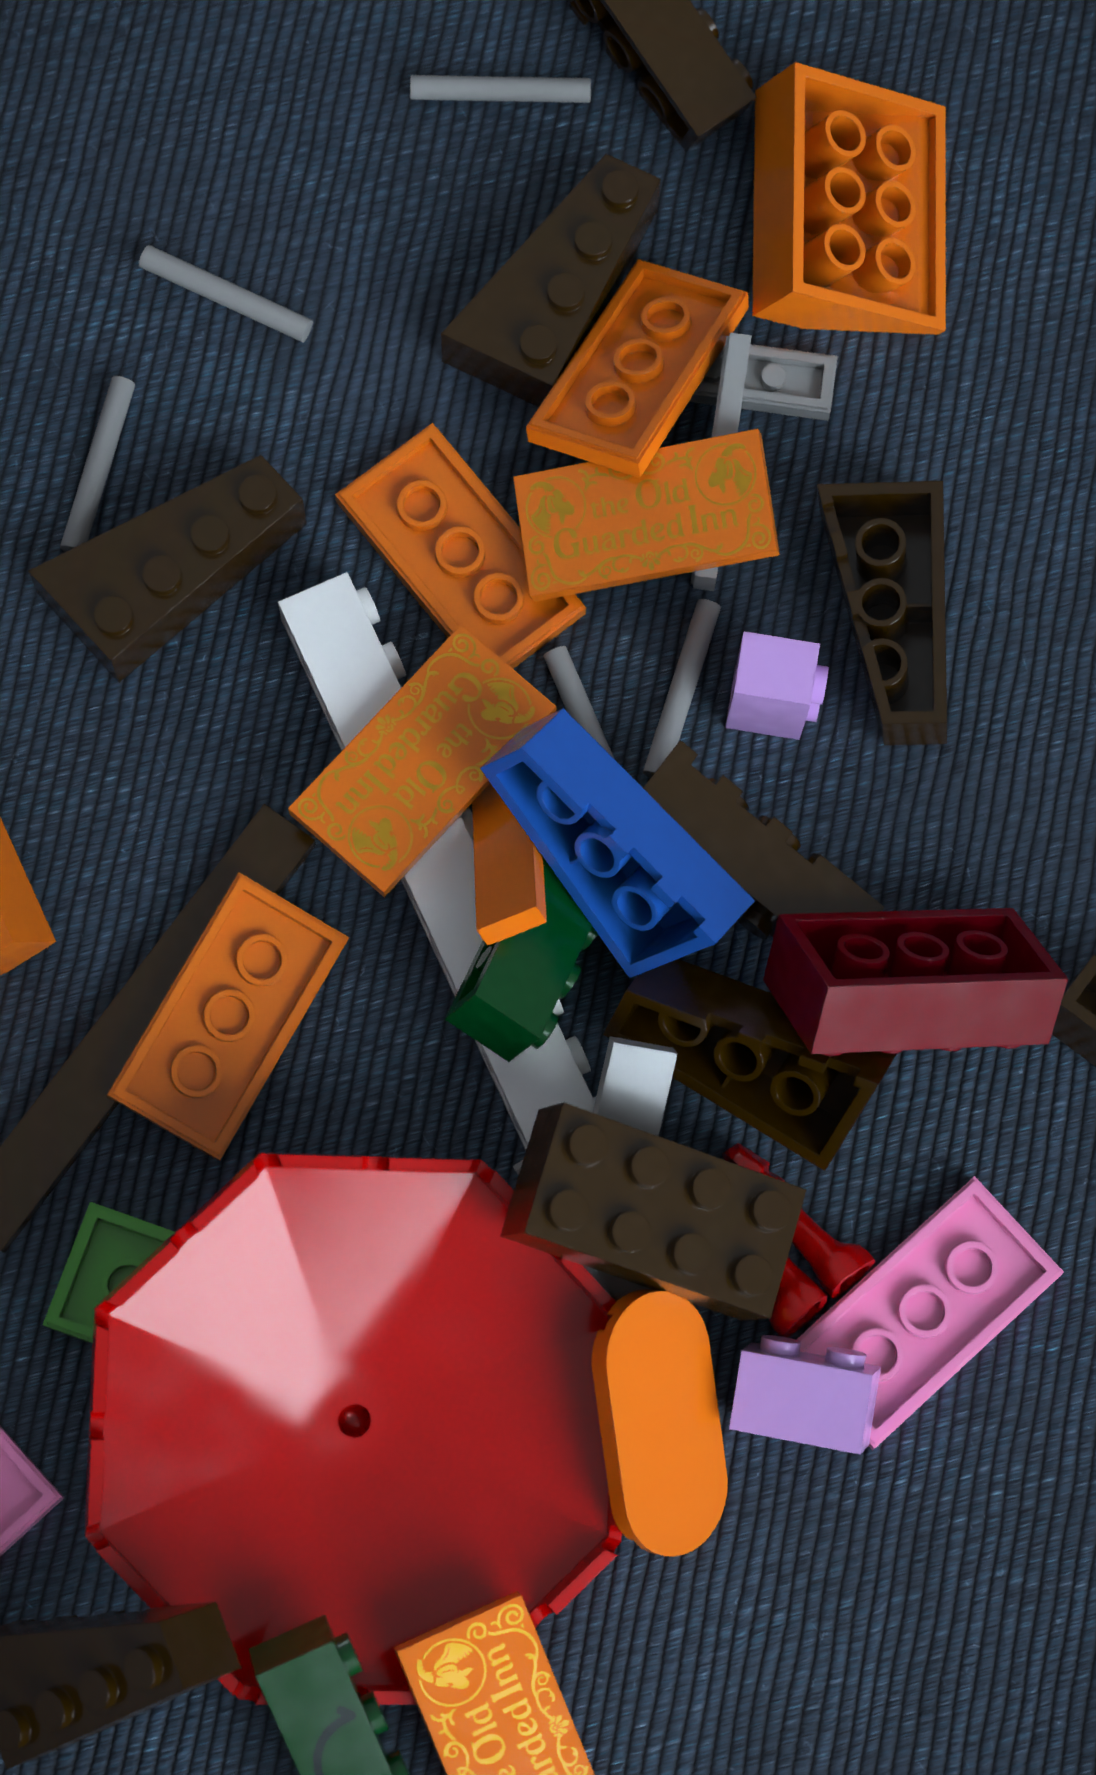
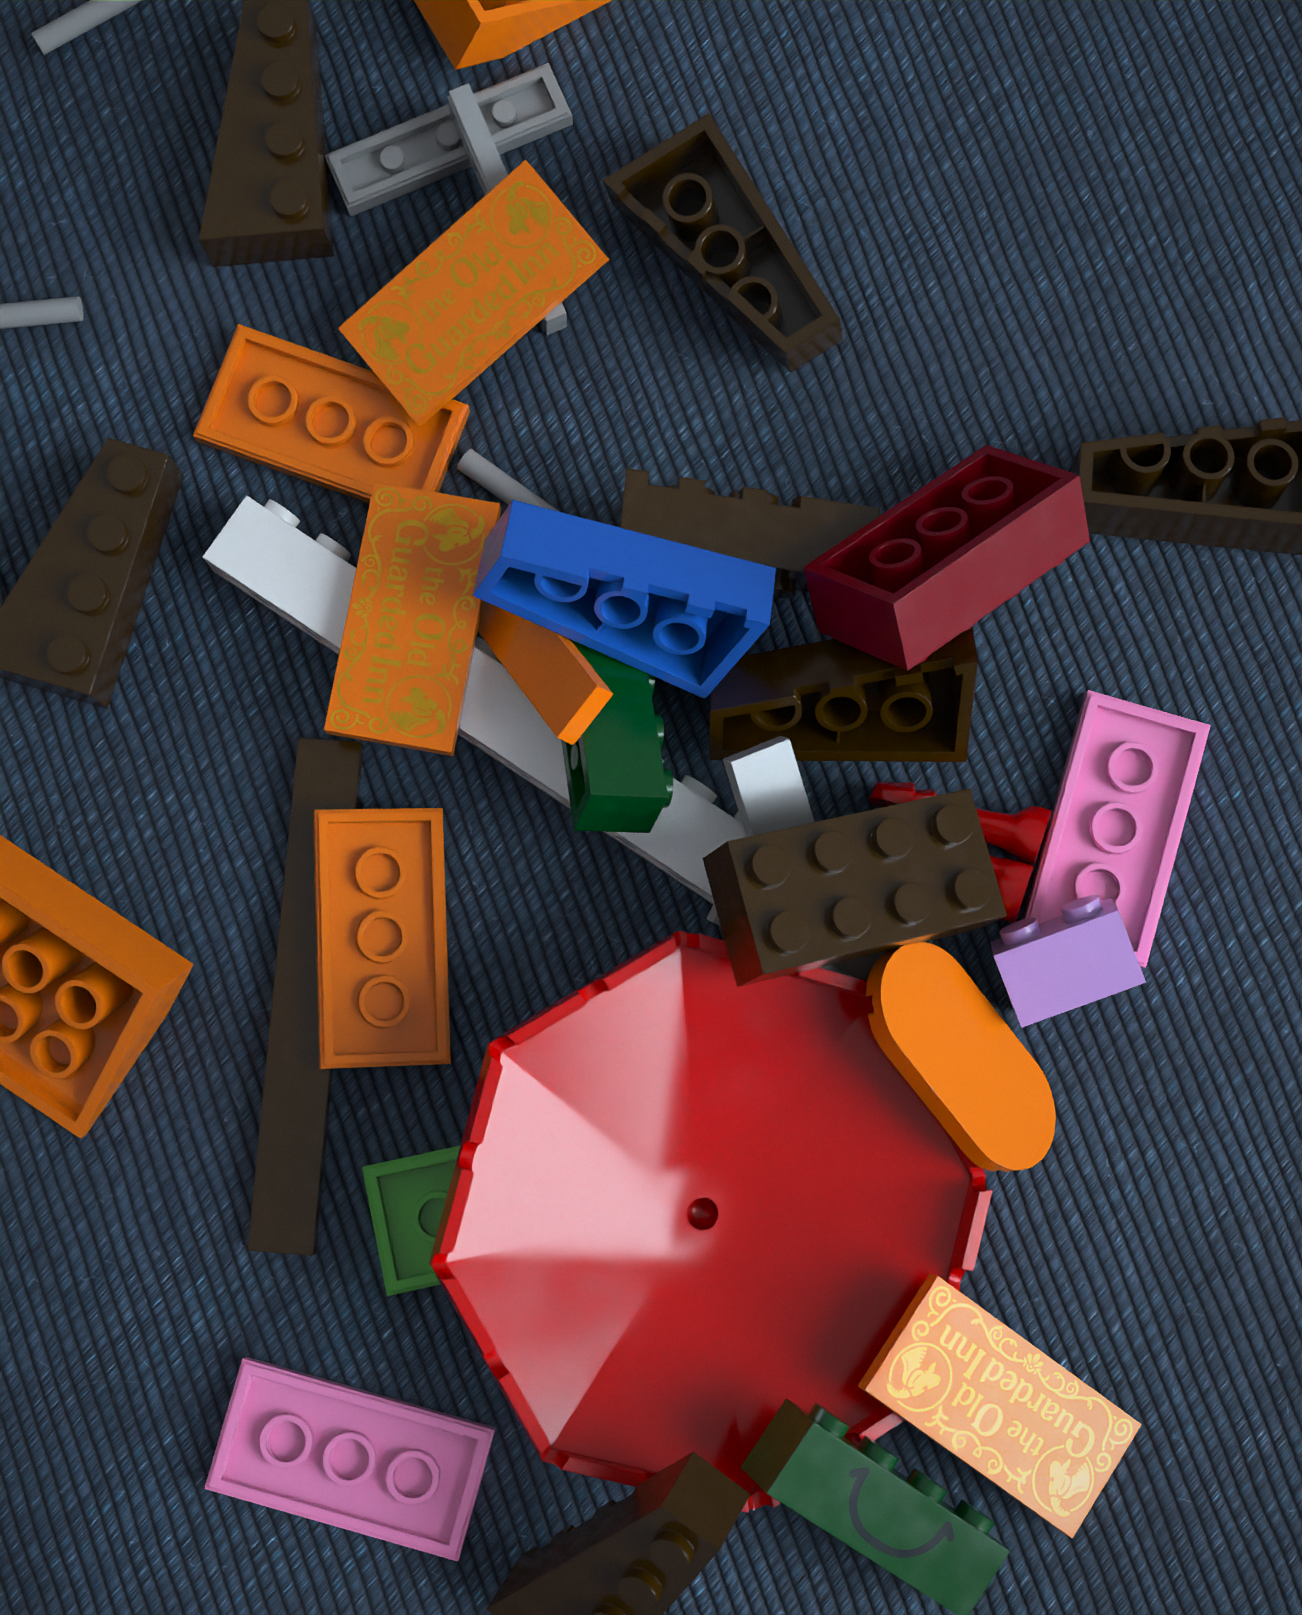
camera: 25 degrees left, 5 degrees up
(637, 368) = (387, 171): orange tile -> none
(683, 684) = (591, 426): light grey bar -> none
(776, 686) = (673, 374): lavender brick -> none

